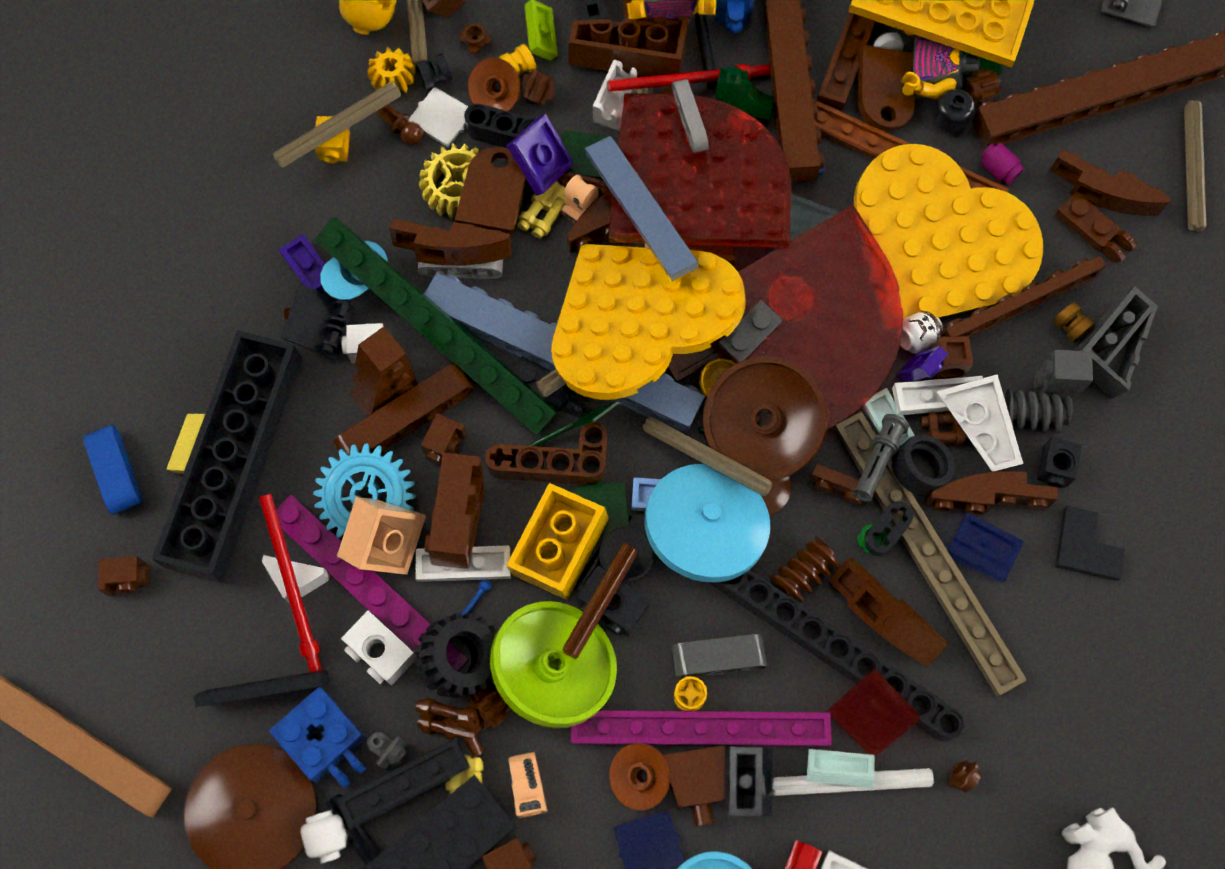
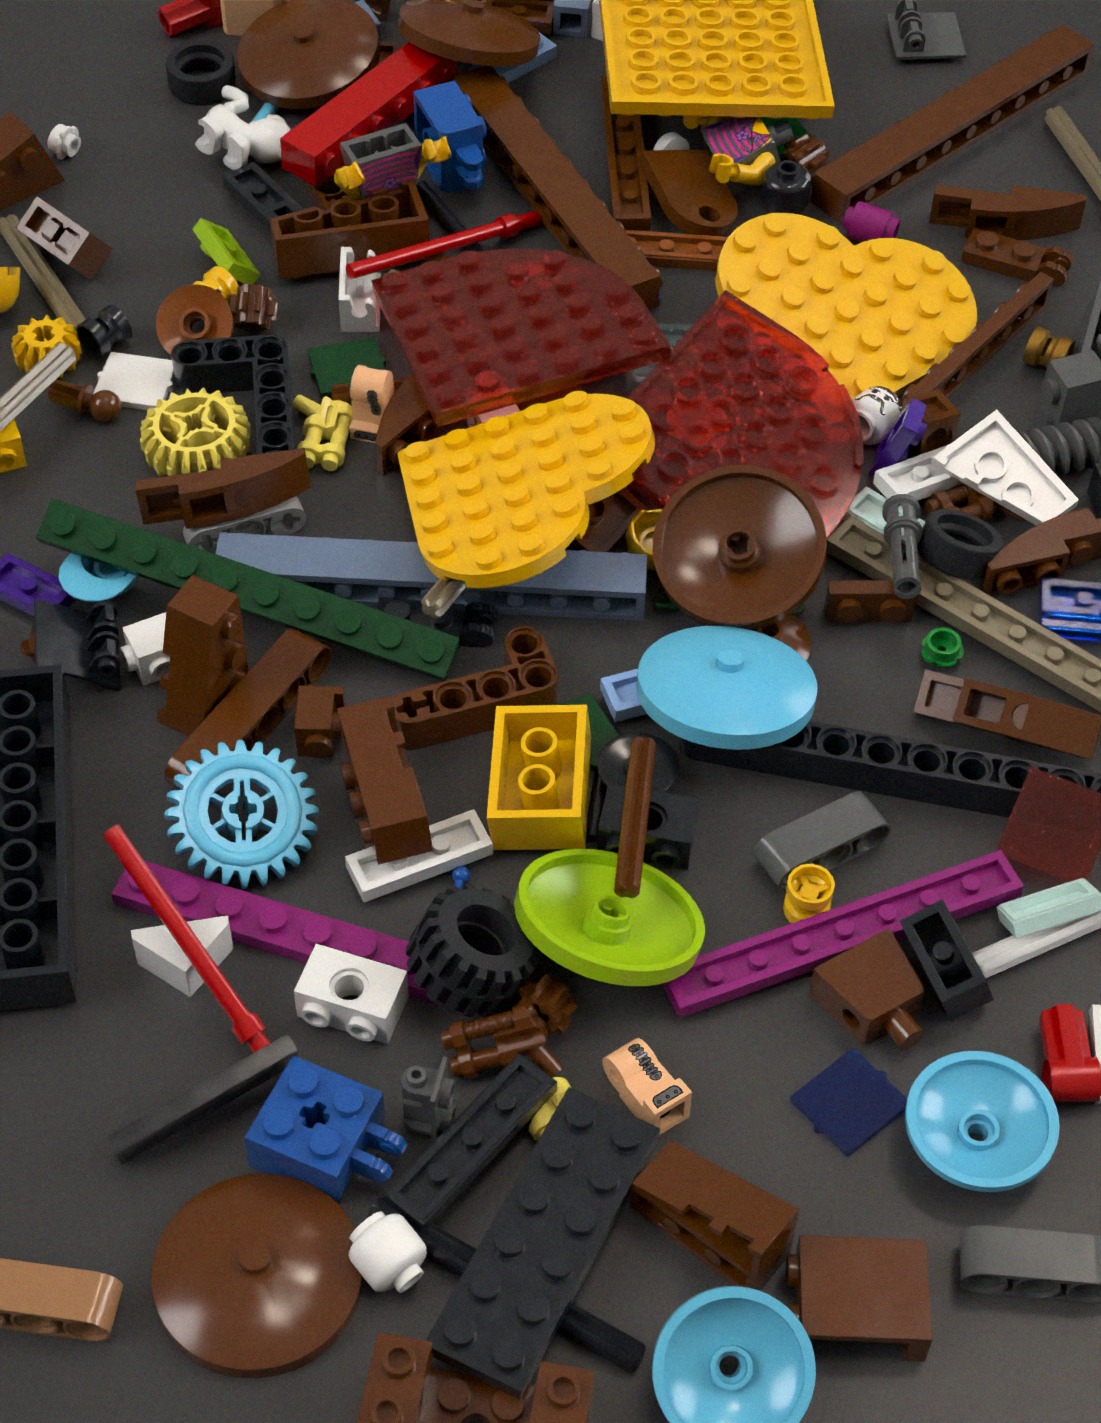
camera: 25 degrees left, 20 degrees down
(381, 536) = (291, 846): light nougat slope -> none
(474, 31) = (140, 284): reddish brown plate -> none
(490, 193) = (252, 420): reddish brown tile -> none
(540, 154) = (298, 364): dark purple plate -> none
(590, 417) = (487, 647): dark green piece -> none
(627, 780) = (777, 999): dark orange dish -> none
(641, 208) = (465, 368): sand blue tile -> none
(690, 116) = (474, 263): light grey beam -> none
(708, 456) = (686, 615): dark tan axle -> none
(738, 91) = (509, 231): dark green arch -> none
(750, 332) = (670, 463): dark grey plate -> none
(805, 569) = (882, 698): reddish brown piece -> none
(883, 524) = (965, 623): black beam -> none

